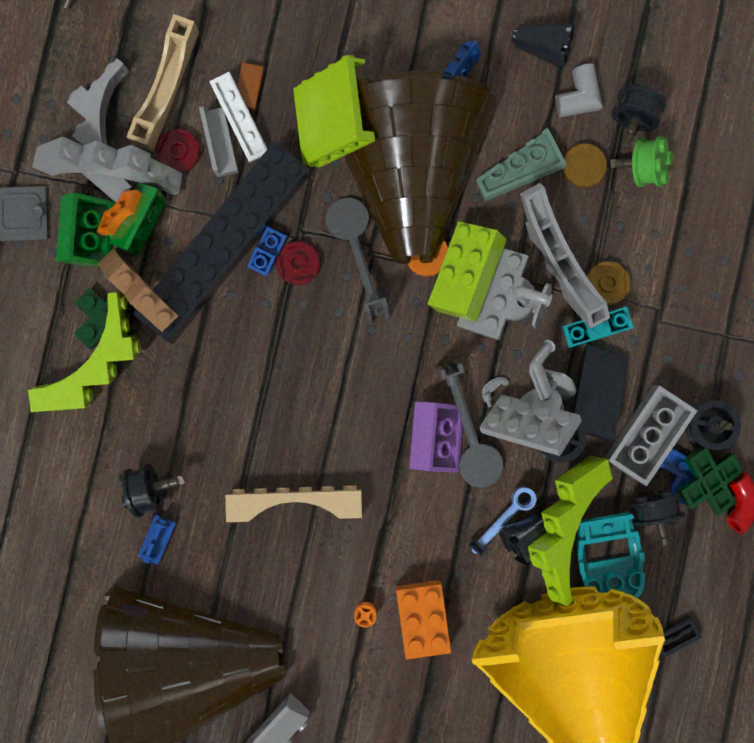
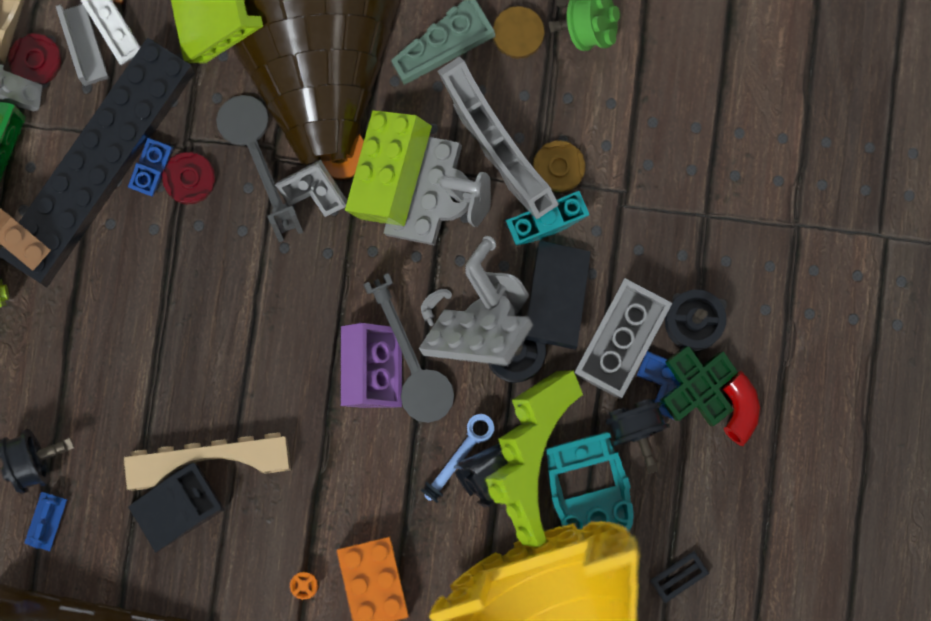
camera: 10 degrees left, 5 degrees down
(266, 539) = (176, 507): none -> black slope
(402, 277) = (313, 182): none -> light grey brick

